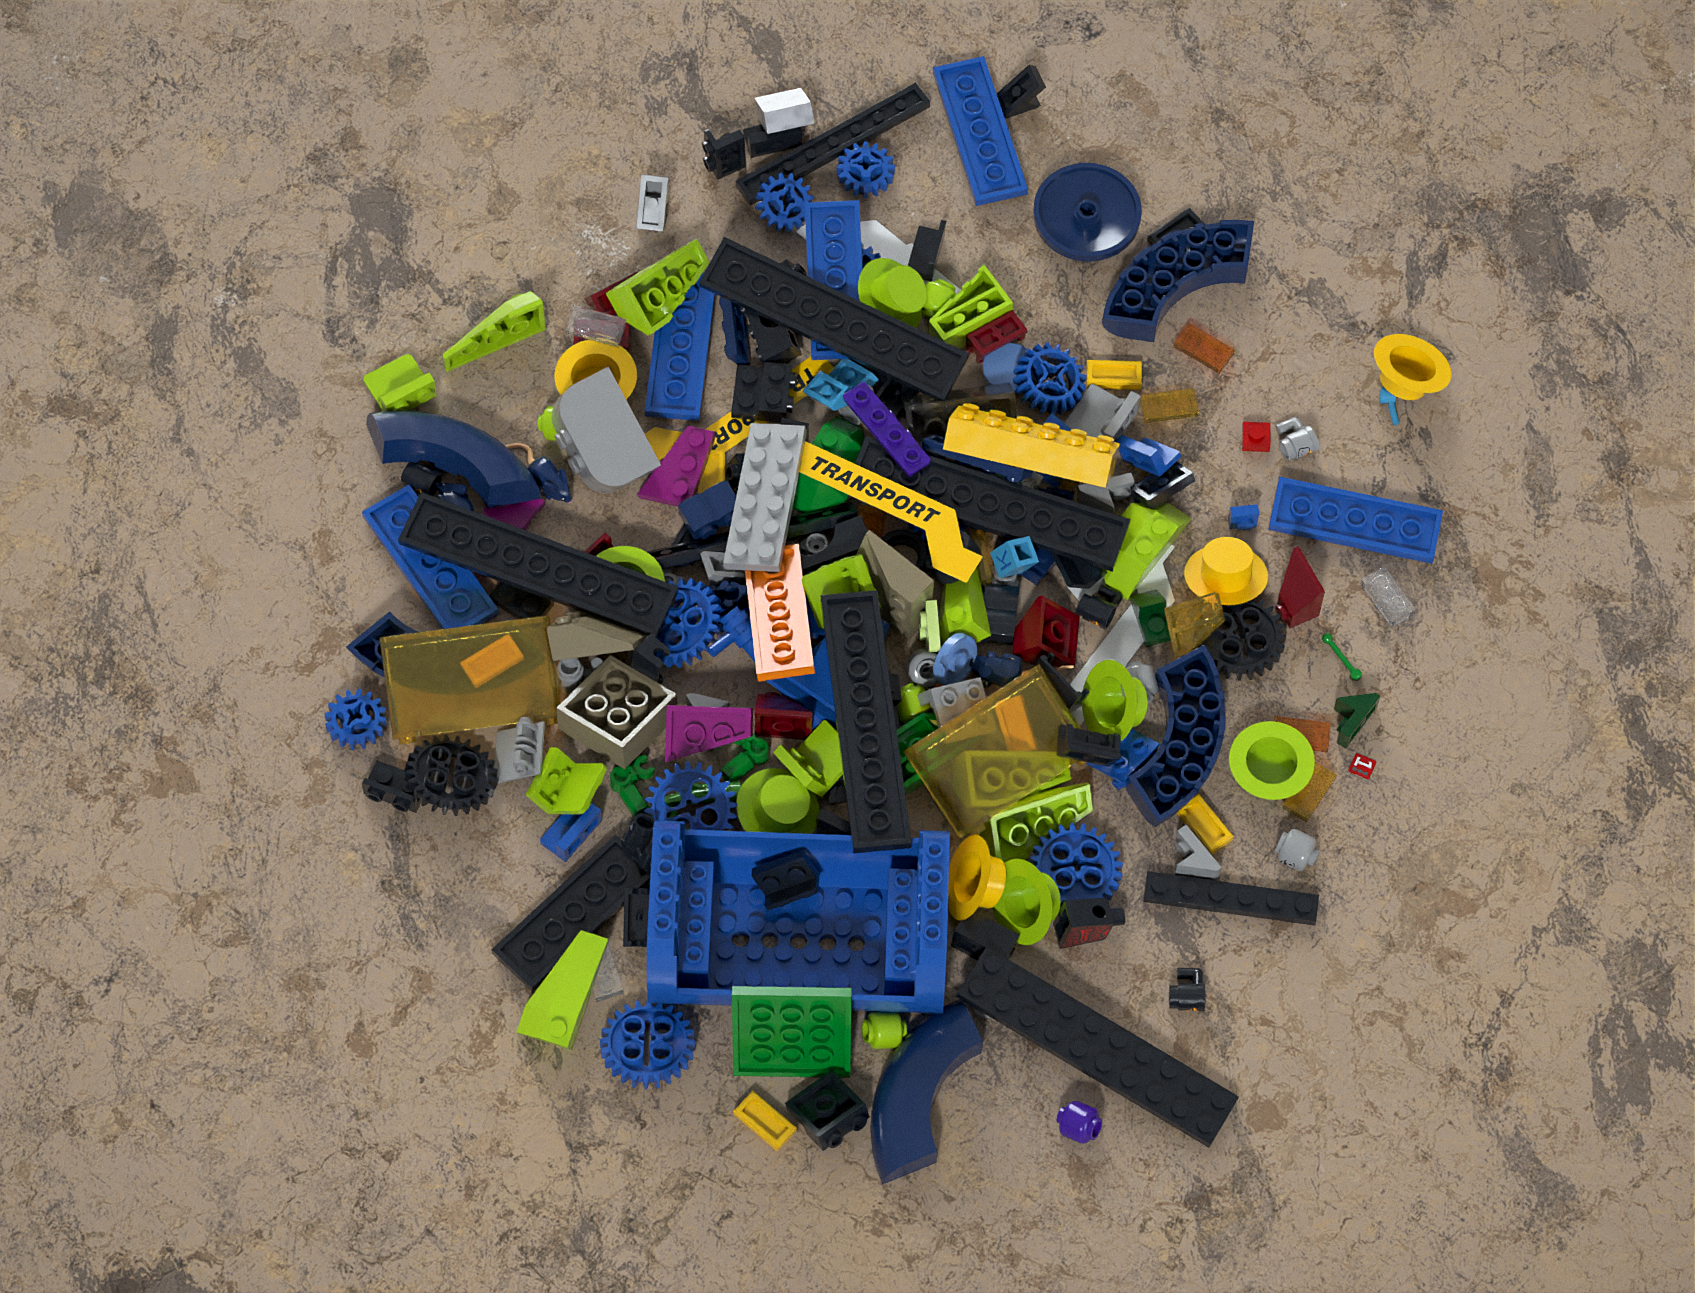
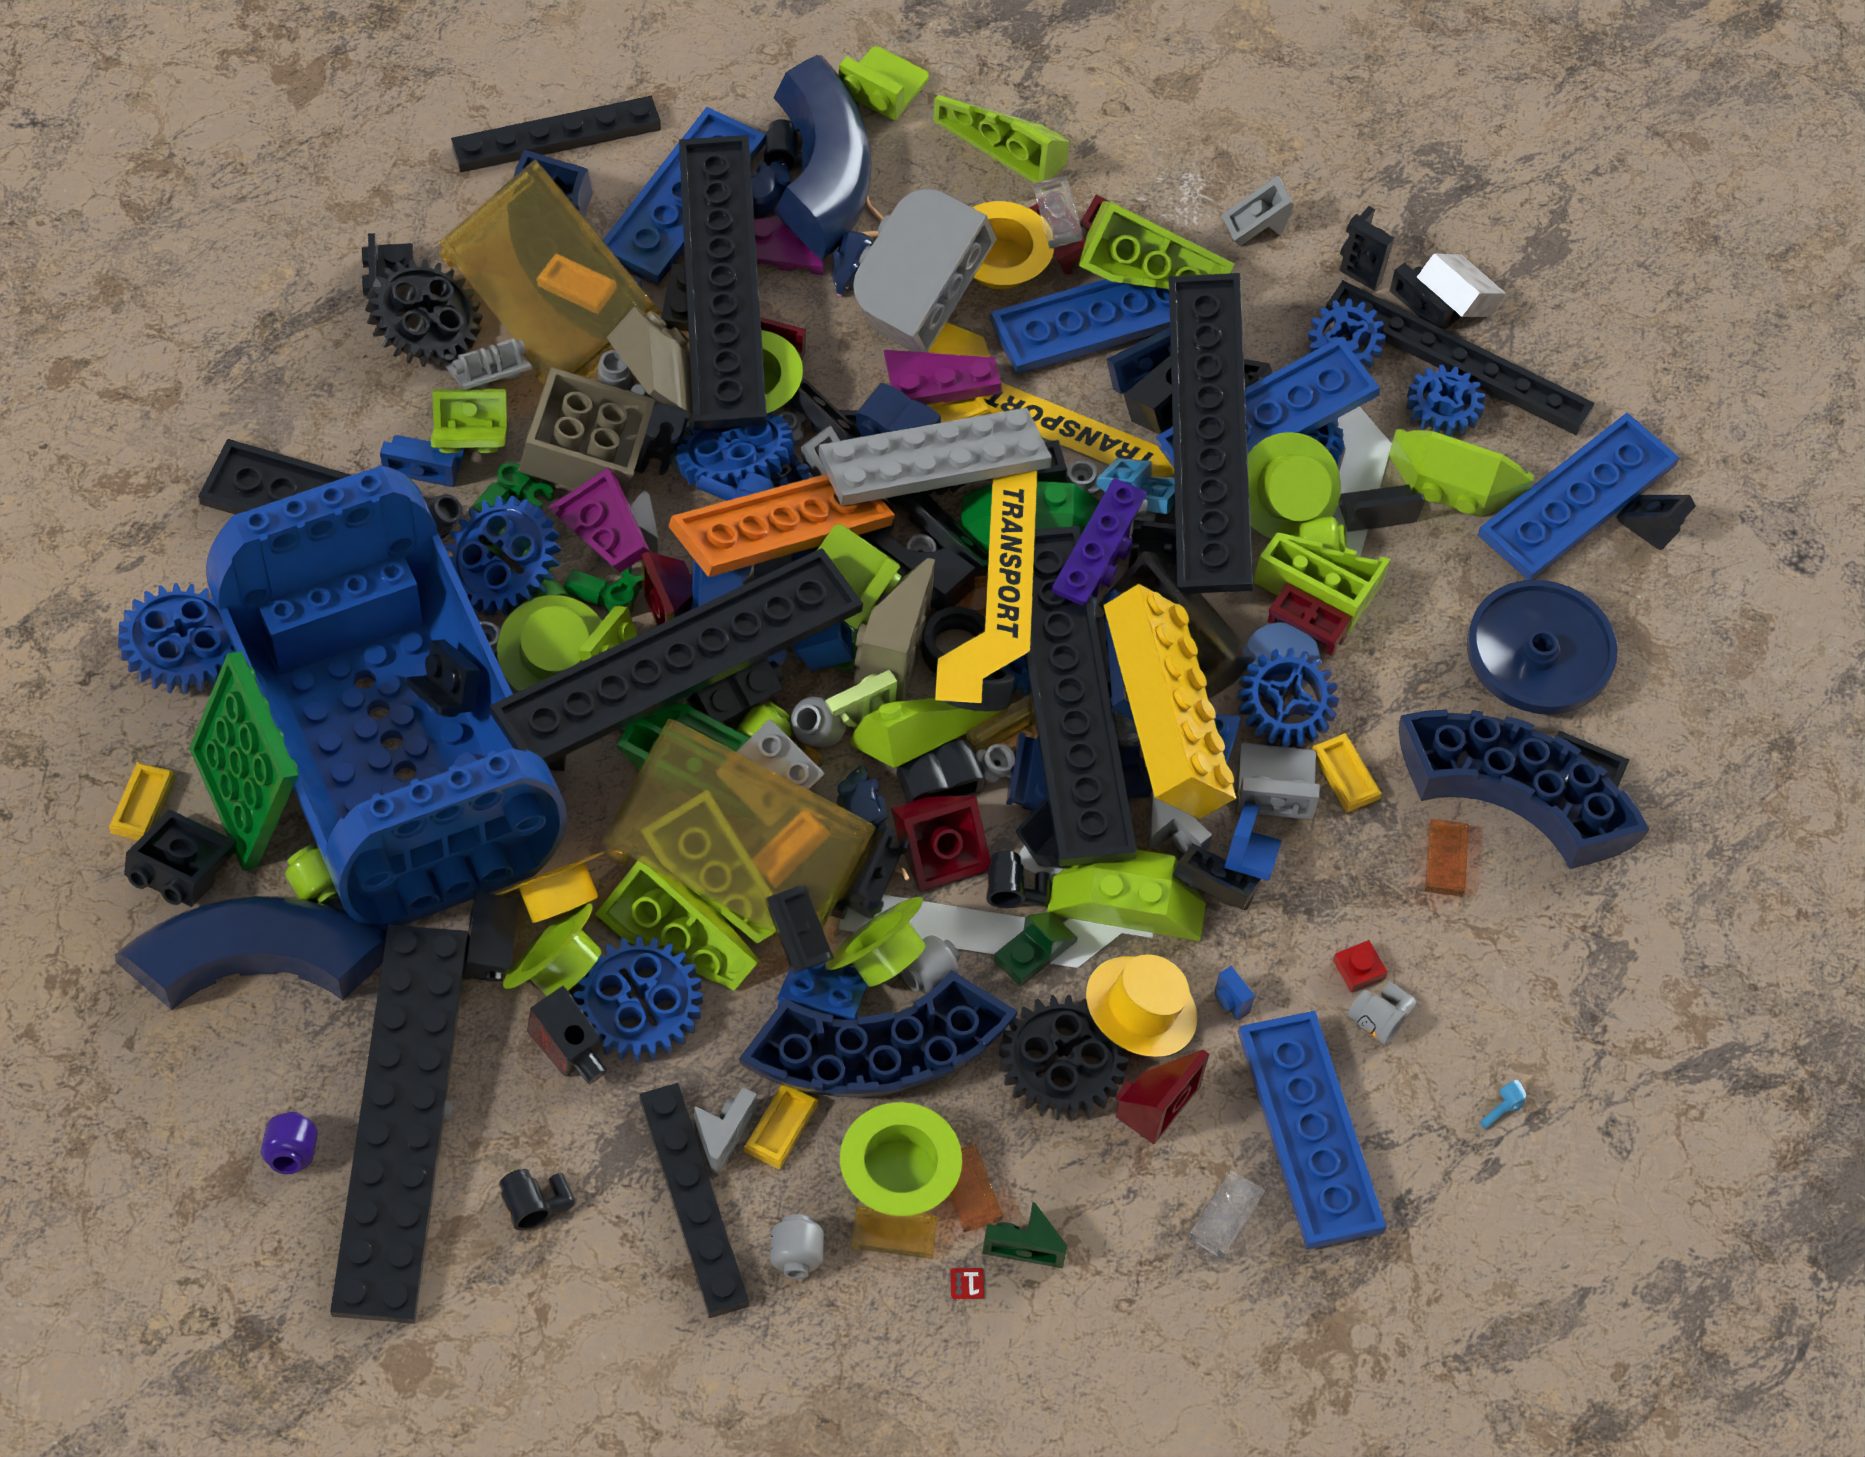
camera: 60 degrees right, 5 degrees down
(324, 624) = (556, 133): none -> black plate
(359, 730) = (447, 200): blue gear -> none
(562, 998) = (178, 532): lime wedge -> none
(763, 392) = (1089, 419): black plate -> none
(811, 414) = (1086, 471): none -> light grey plate
(926, 196) = (1457, 472): none -> lime wedge
(954, 659) = (838, 741): medium blue tile -> none
(1014, 557) = (1012, 747): dark azure brick -> none
(1169, 405) = (1342, 850): clear yellow tile -> none
(1193, 622) = (1043, 987): clear yellow wing -> none
(1355, 674) = (1094, 1220): green hinge -> none
(1402, 355) = (1563, 1082): yellow hose -> none

